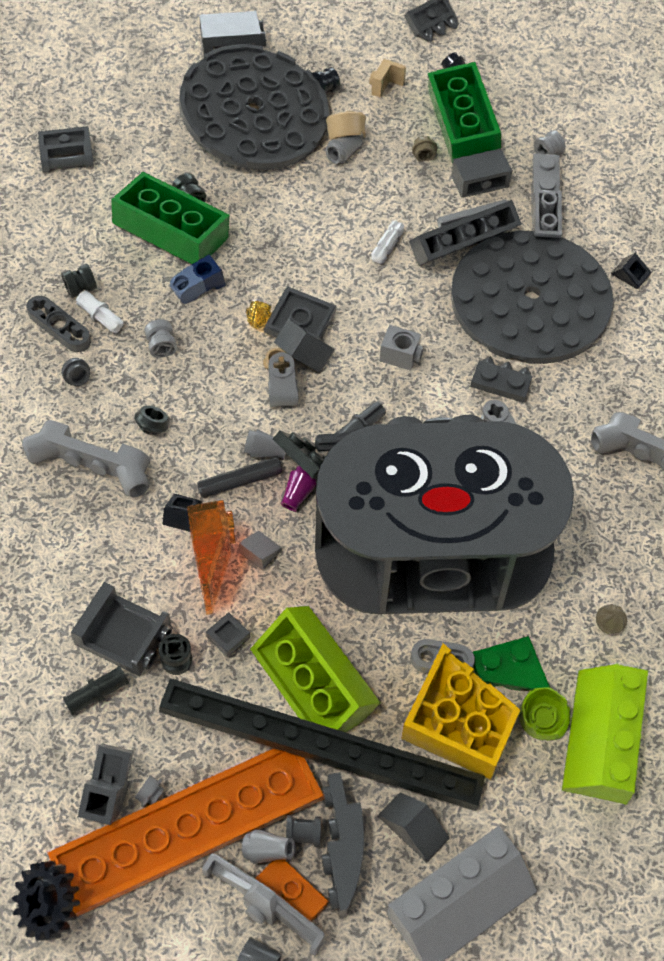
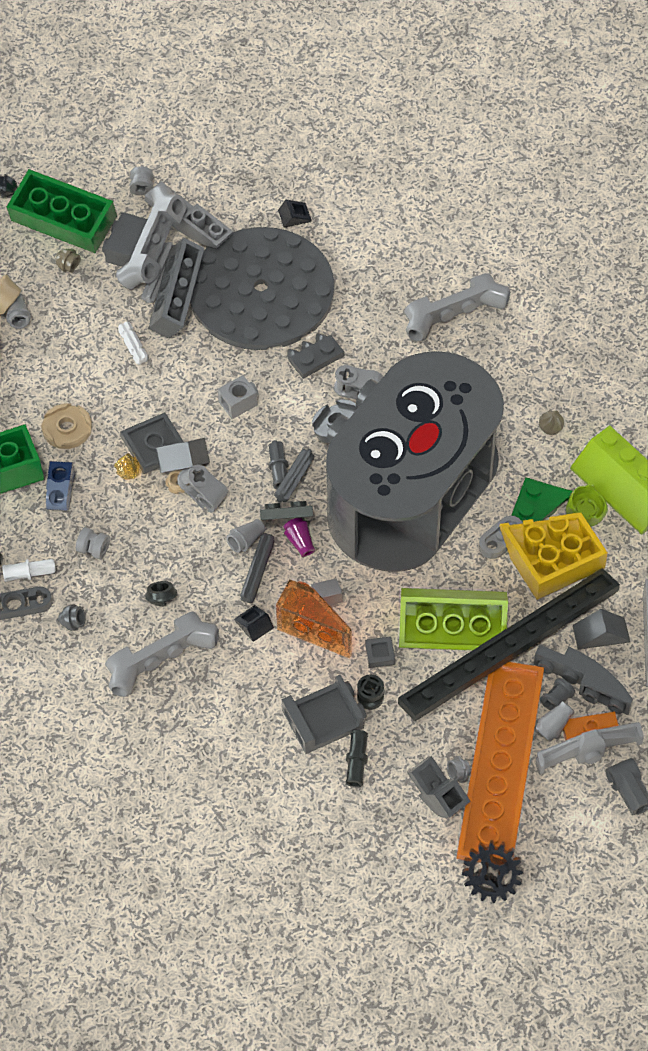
camera: 50 degrees left, 0 degrees up
(264, 262) = (66, 438): none -> tan tile
(467, 193) = (142, 266): none -> light grey plate

